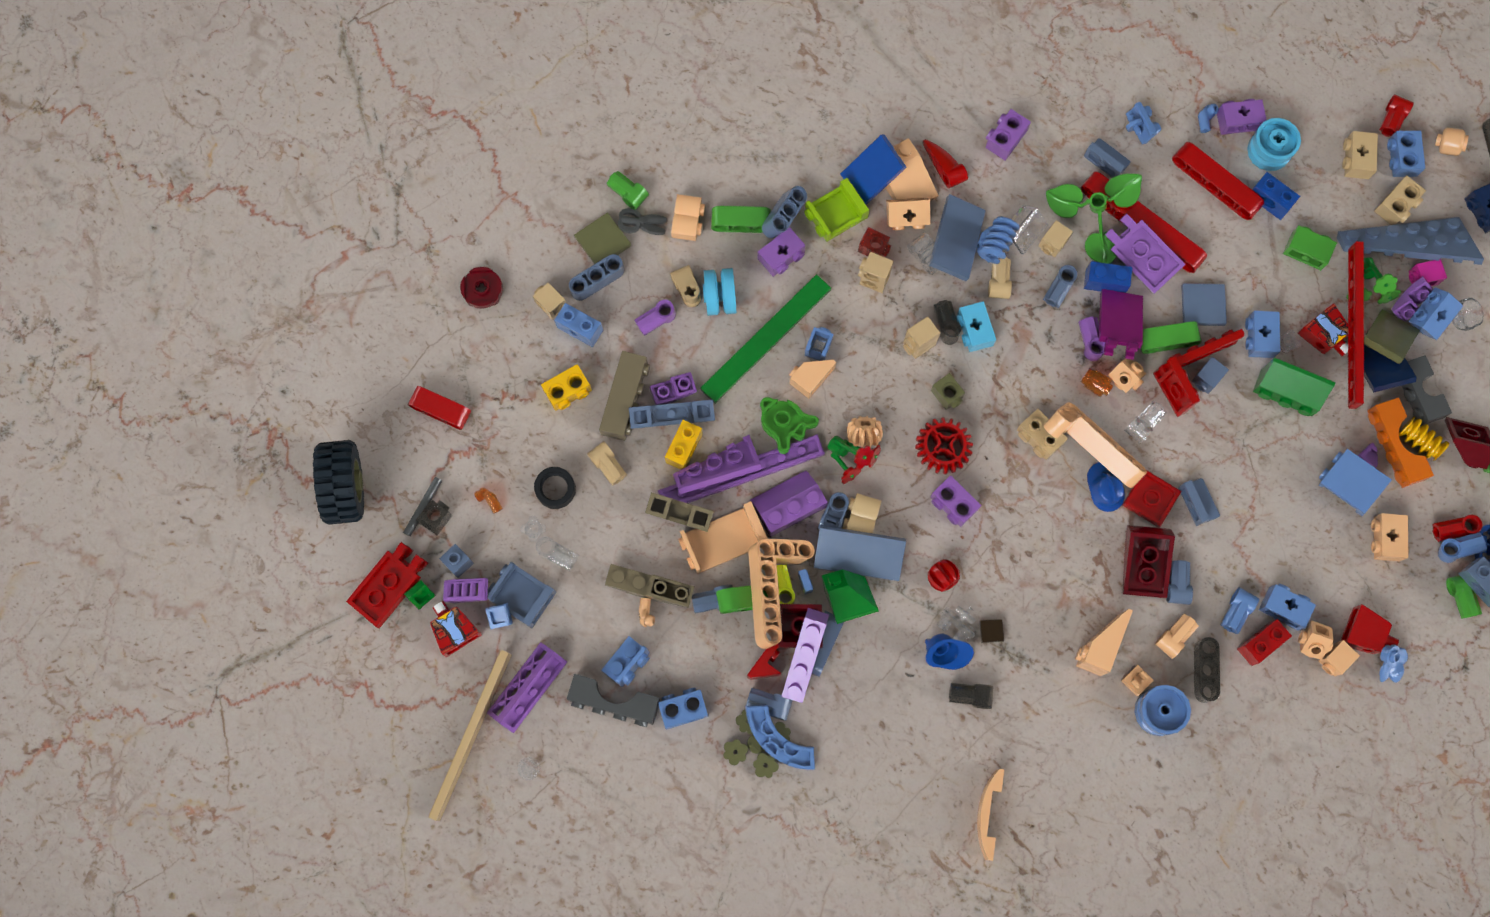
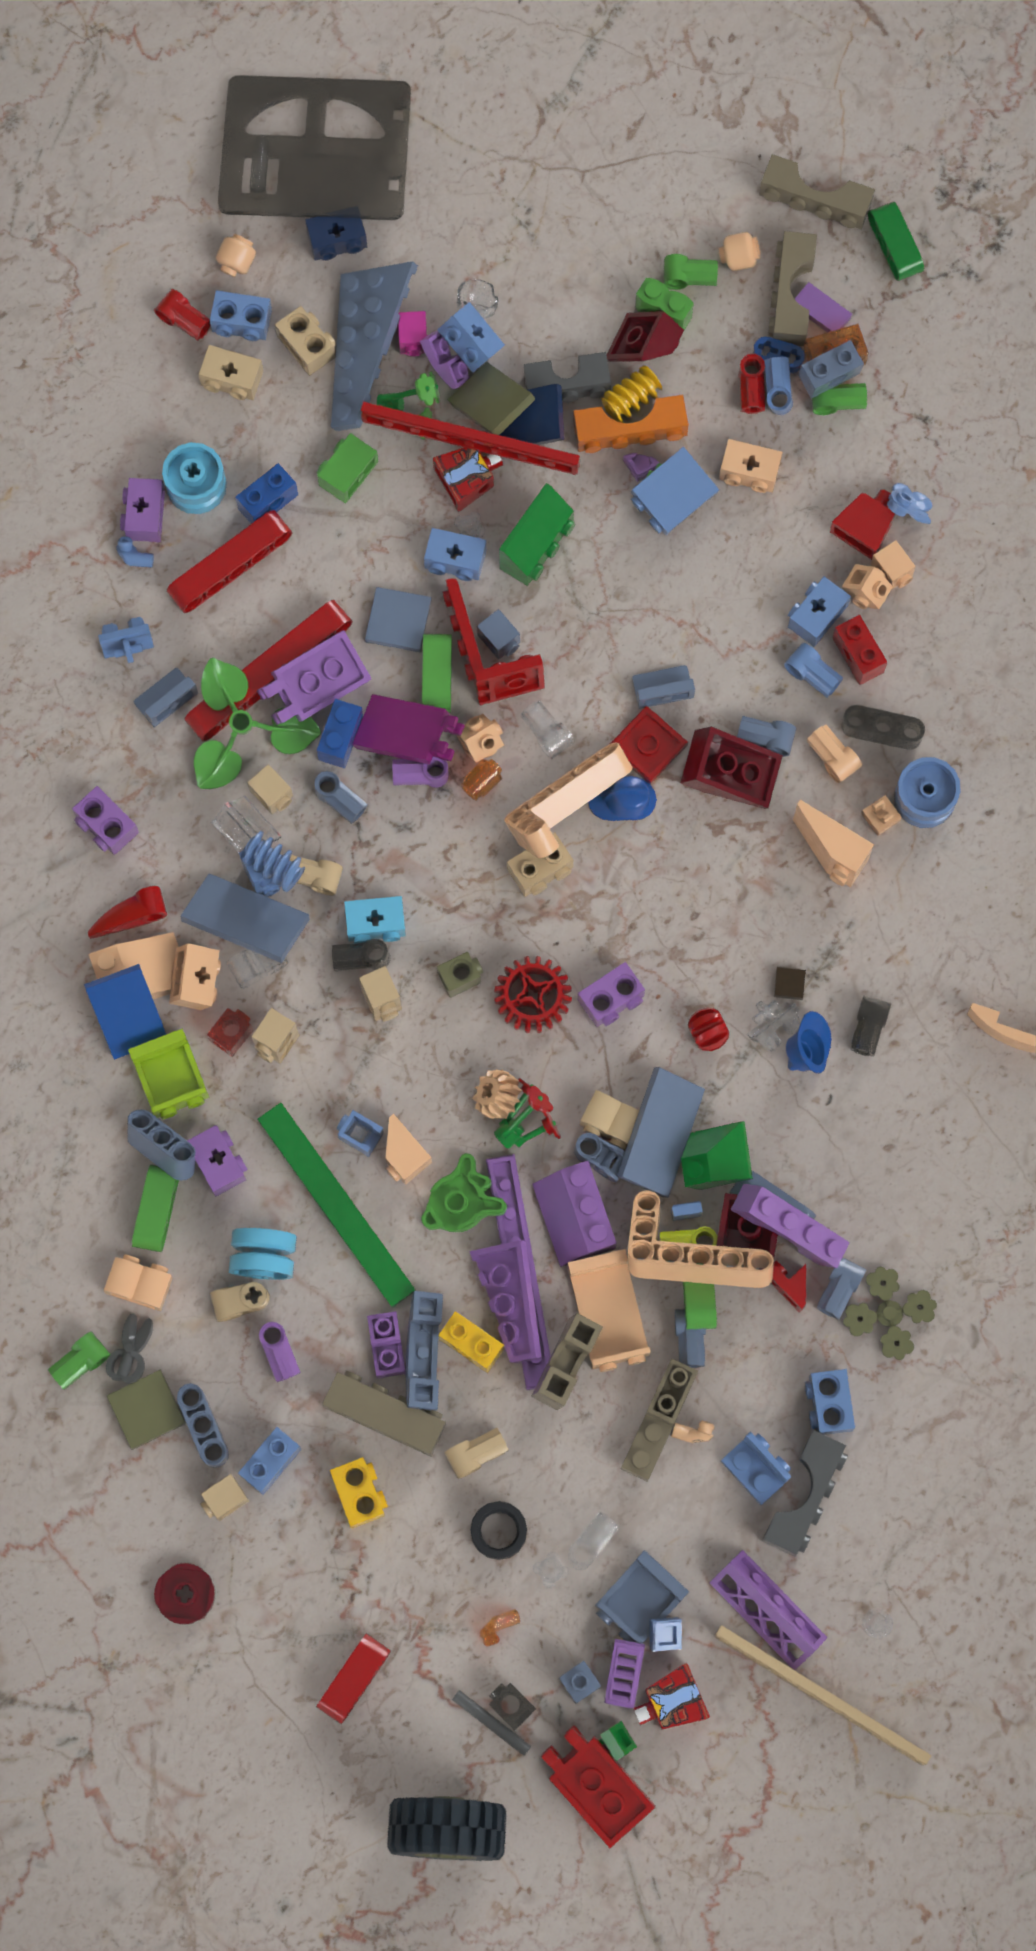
camera: 80 degrees left, 0 degrees up
(774, 743) = (893, 1290): medium blue tile -> none

